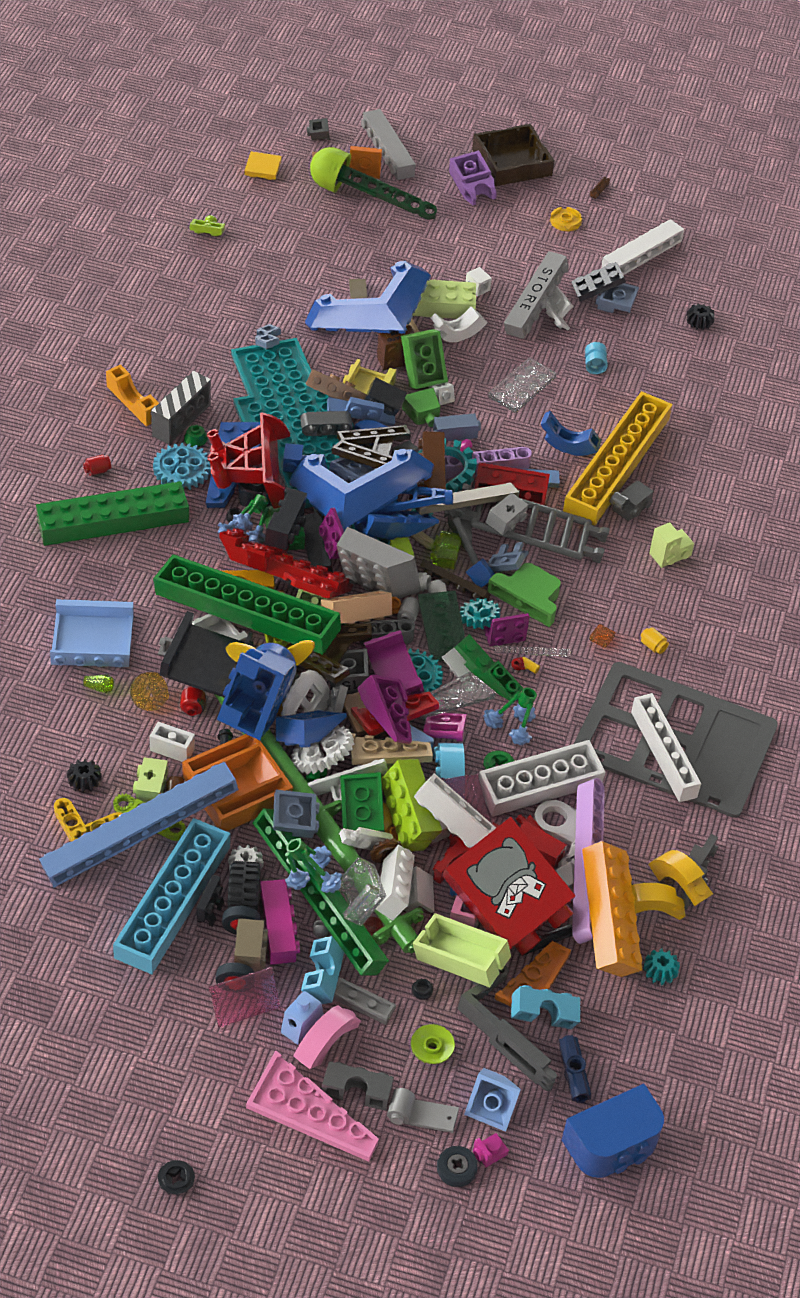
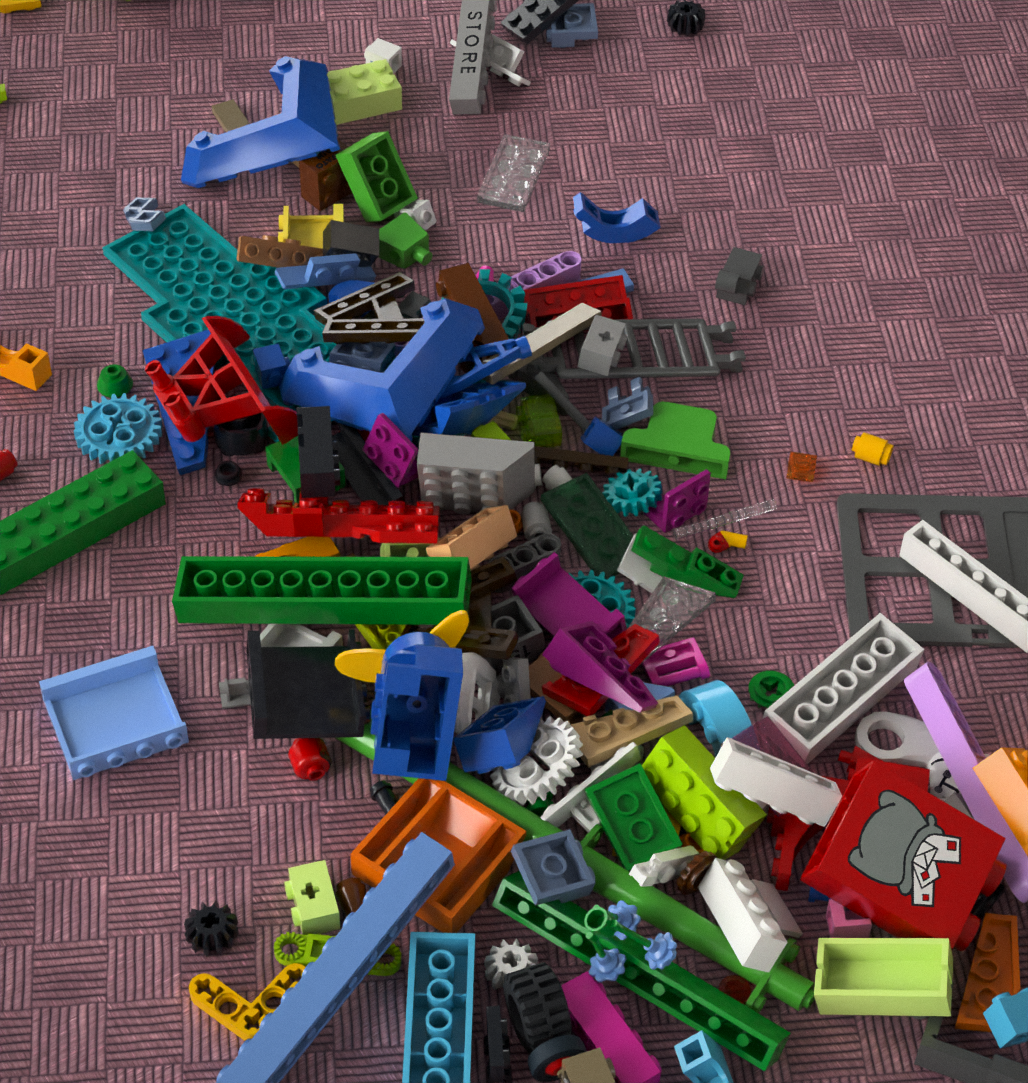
camera: 20 degrees left, 0 degrees up
(101, 683) = (161, 781): clear neon green cone -> none
(157, 687) = (250, 758): clear yellow plate -> none
(172, 742) = (315, 830): white brick -> none
(181, 407) = (76, 348): dark grey brick -> none
(243, 521) = (254, 475): medium blue plant -> none
(320, 929) = (667, 1027): light grey hinge -> none
(325, 423) = (289, 304): dark grey beam -> none
(362, 890) = (708, 946): clear panel -> none
(422, 989) = (853, 1055): black plate -> none
(457, 426) = (469, 248): sand blue brick -> none
(460, 328) = (397, 120): white arch -> none
(523, 711) = (765, 607): medium blue plant -> none
(596, 358) = (589, 108): medium azure wheel -> none
(617, 457) = (691, 227): yellow brick -> none
(670, 545) = (821, 318): yellowish green brick -> none

